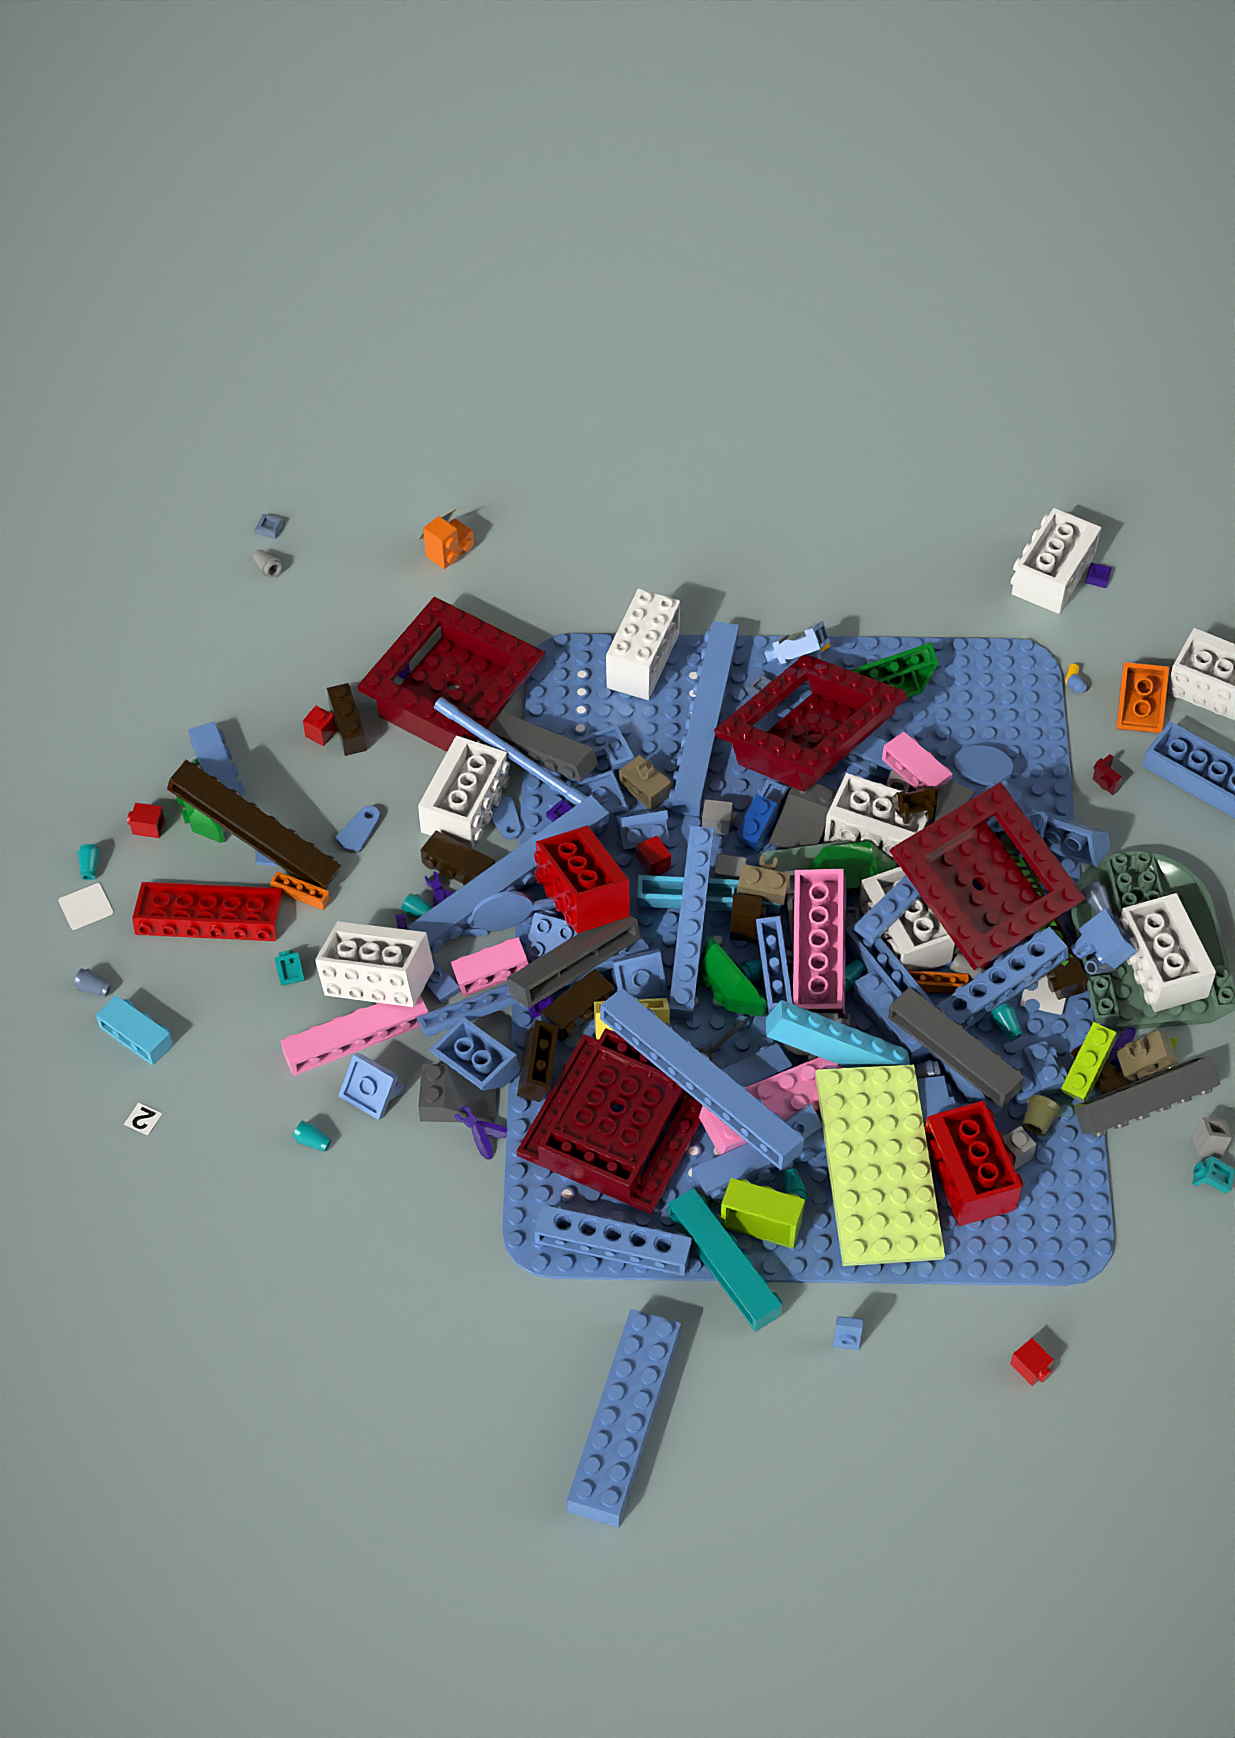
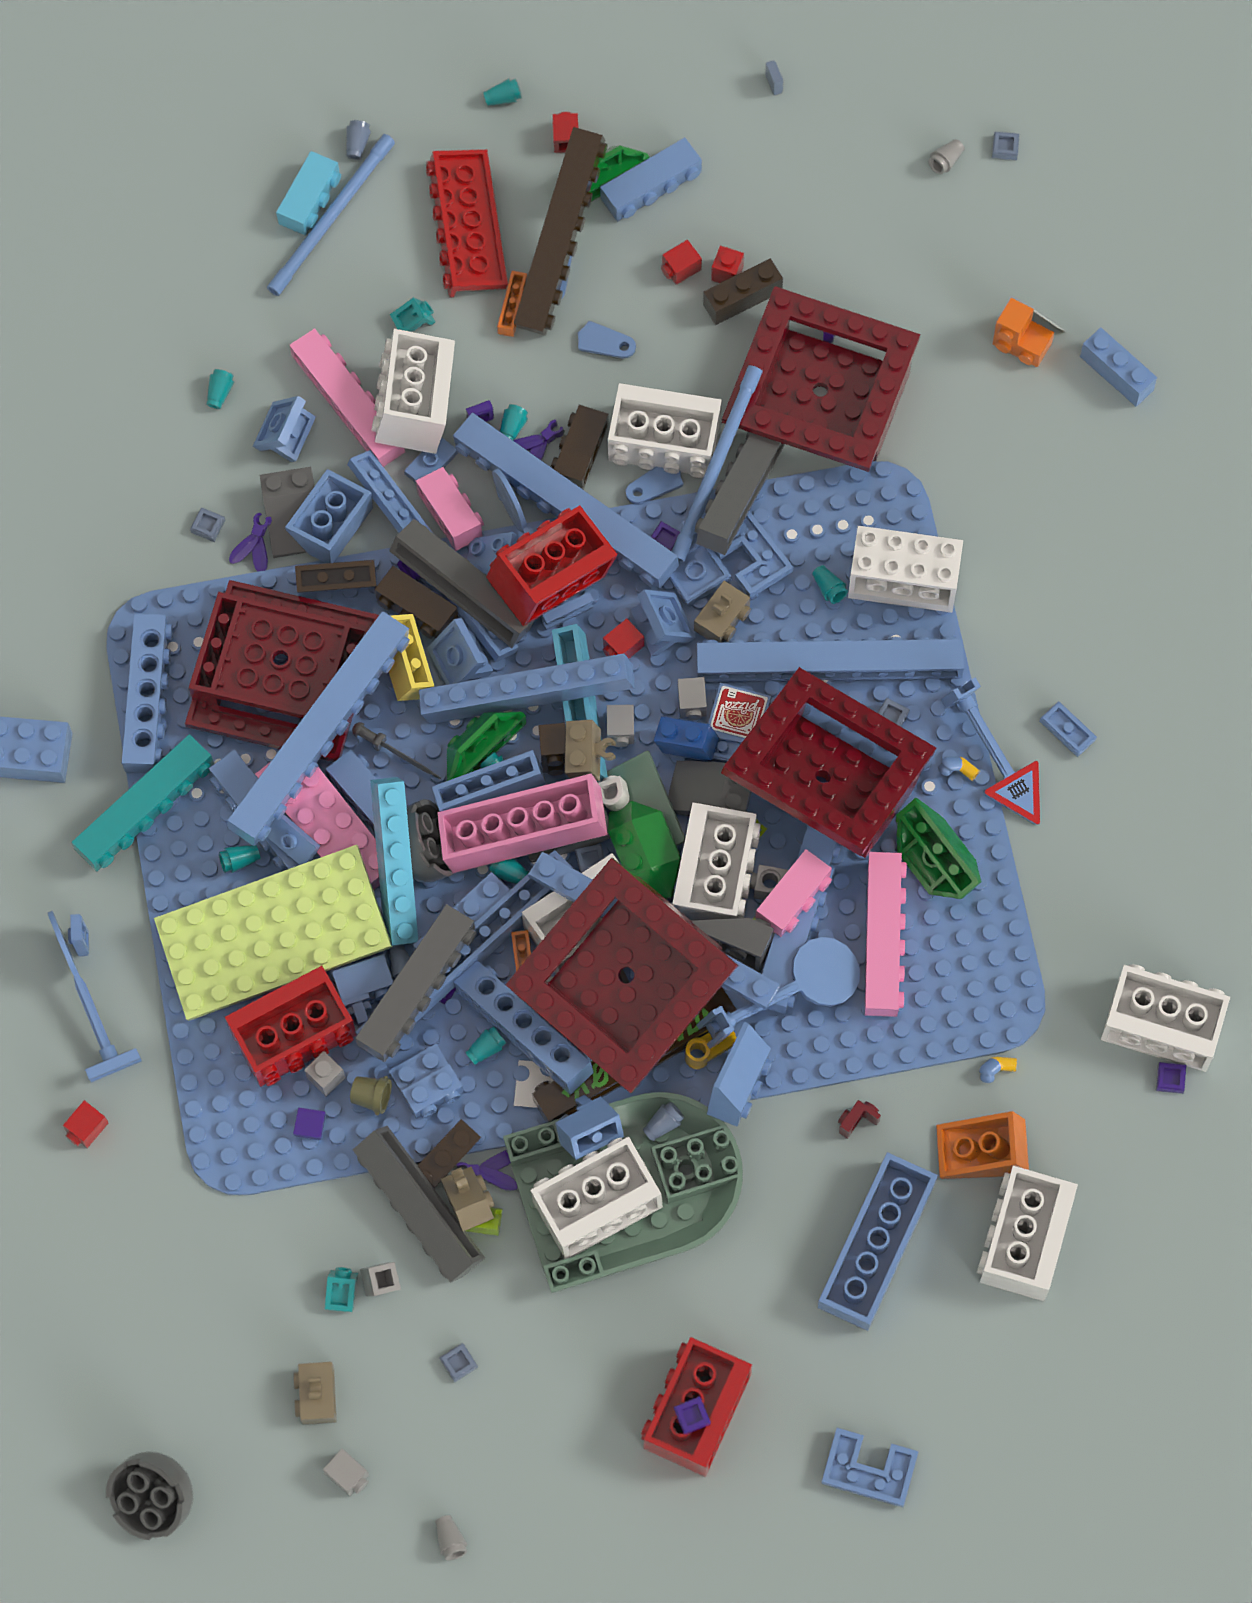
camera: 80 degrees right, 15 degrees up
(85, 906) = (453, 108): white sticker -> none
(143, 1119) = (215, 231): white sticker -> none
(150, 663) = (774, 77): none -> sand blue tile
(210, 1064) = (285, 274): none -> medium blue piece
(303, 758) = (681, 262): none -> red brick
(447, 1170) = (207, 524): none -> sand blue tile
(494, 488) = (1118, 367): none -> medium blue brick
(636, 705) = (830, 585): none -> teal cone
(737, 787) = (737, 710): none -> tile
(762, 1212) = (195, 827): lime piece -> none
(797, 580) = (1068, 729): none -> medium blue plate
(798, 644) = (947, 736): hips -> none
(841, 619) = (1018, 789): none -> medium blue piece
(868, 1341) = (111, 1060): none -> medium blue piece
(915, 802) = (720, 889): dark brown piece -> none
(957, 725) = (883, 934): none -> bright pink brick
(1058, 1173) = (309, 1123): none -> dark purple tile
(1089, 1062) = (437, 1132): lime brick -> none

